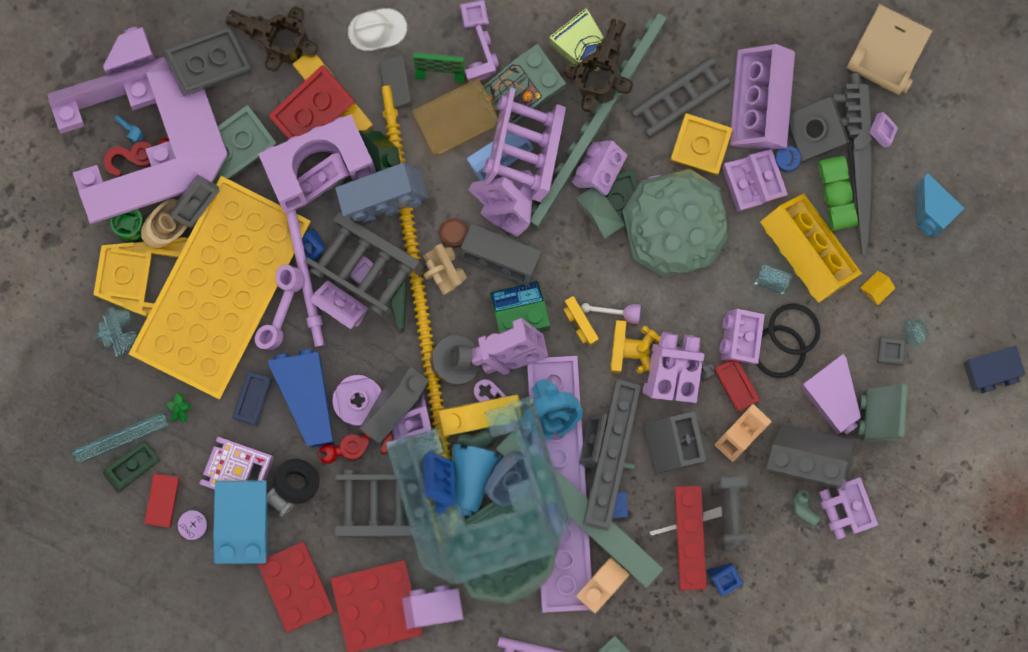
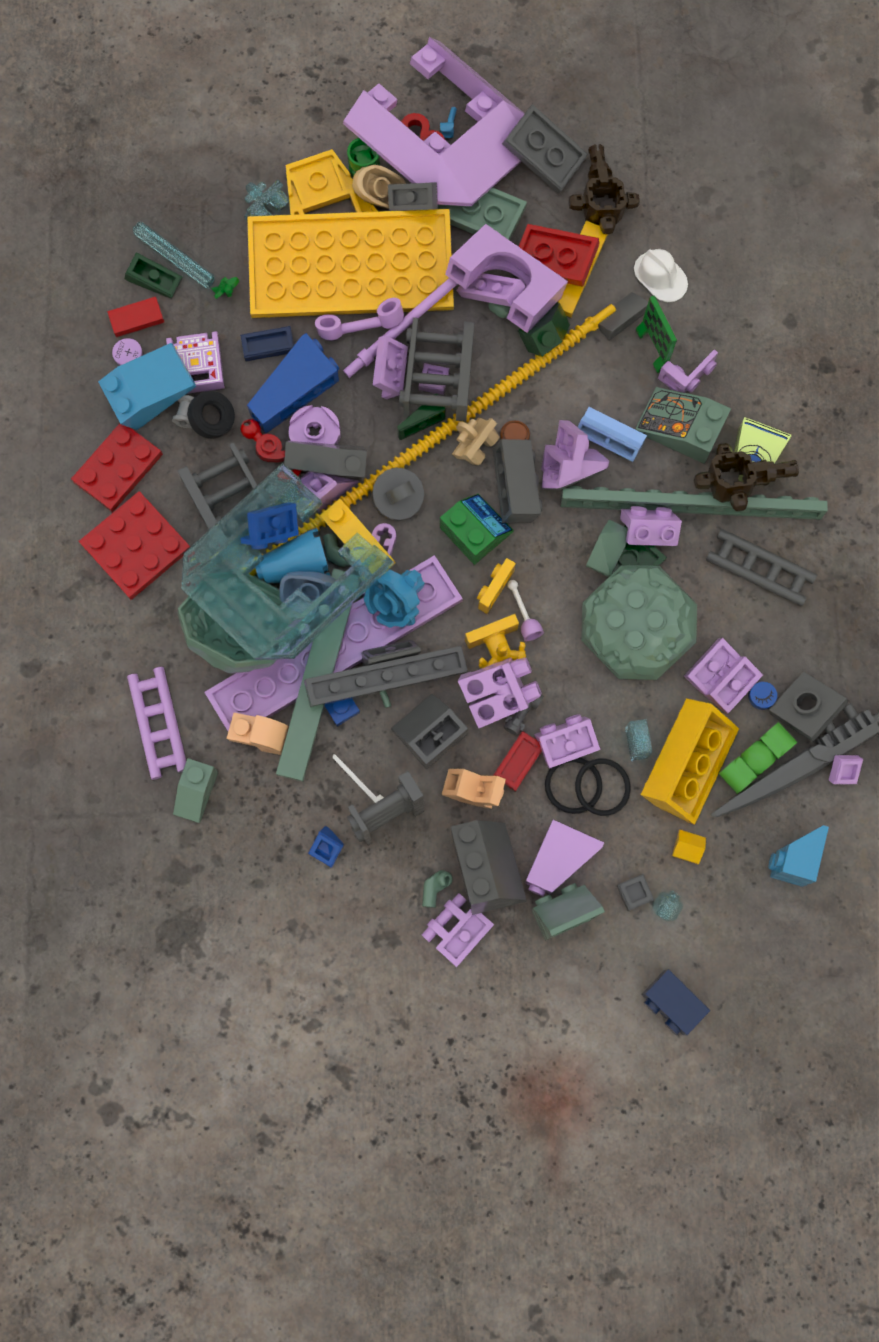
camera: 60 degrees right, 5 degrees down
(129, 50) = (516, 84): lavender slope -> none
(312, 245) = (433, 320): blue slope -> none
(382, 193) = (512, 346): sand blue brick -> none
(432, 608) = (156, 590): lavender brick -> none
(456, 116) = (622, 380): clear yellow plate -> none
(474, 14) = (726, 347): lavender tile -> none
(510, 349) = (434, 531): lavender hips -> none
(547, 140) = (646, 464): lavender fence -> none
(690, 538) = (346, 790): red brick -> none
(701, 144) = (727, 608): yellow plate -> none
(762, 97) = (807, 640): lavender slope -> none

